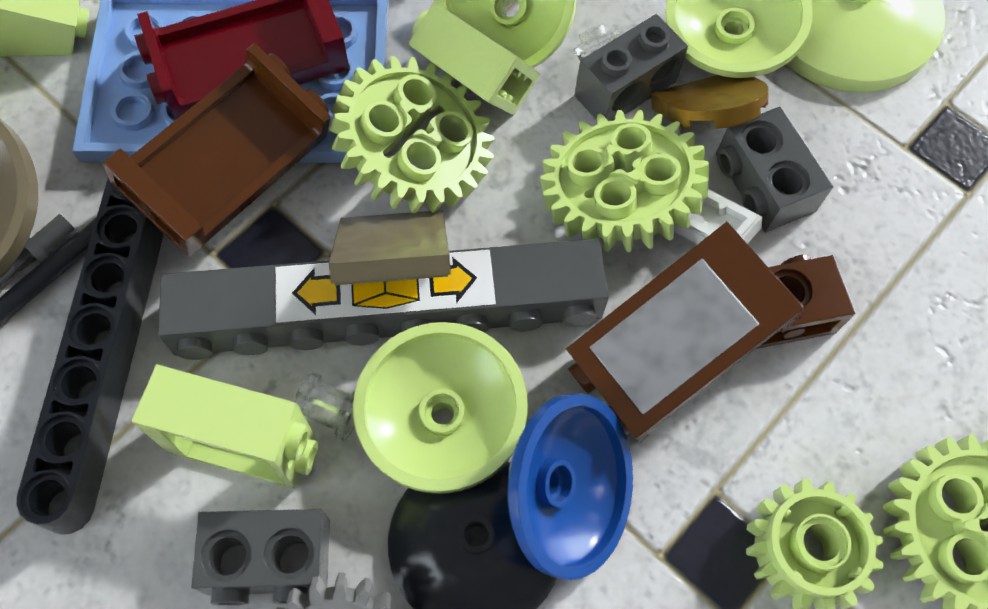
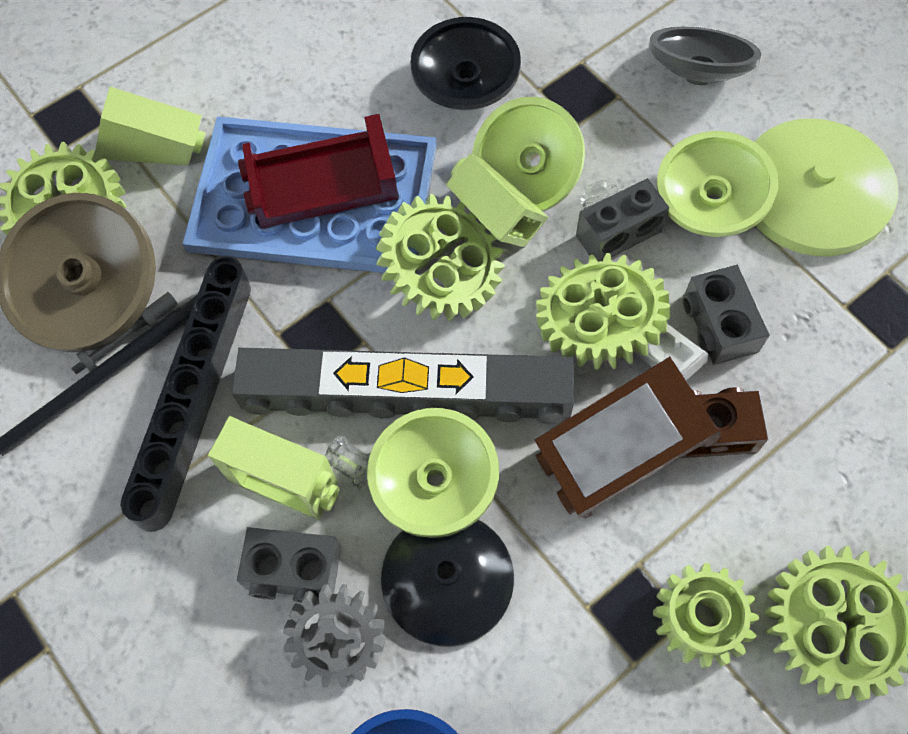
camera: 15 degrees right, 0 degrees up
(222, 151) = (294, 257): reddish brown panel -> none
(390, 248) = (410, 346): dark tan tile -> none
(570, 486) = (522, 544): blue dish -> none
(713, 98) = (685, 253): pearl gold tile -> none

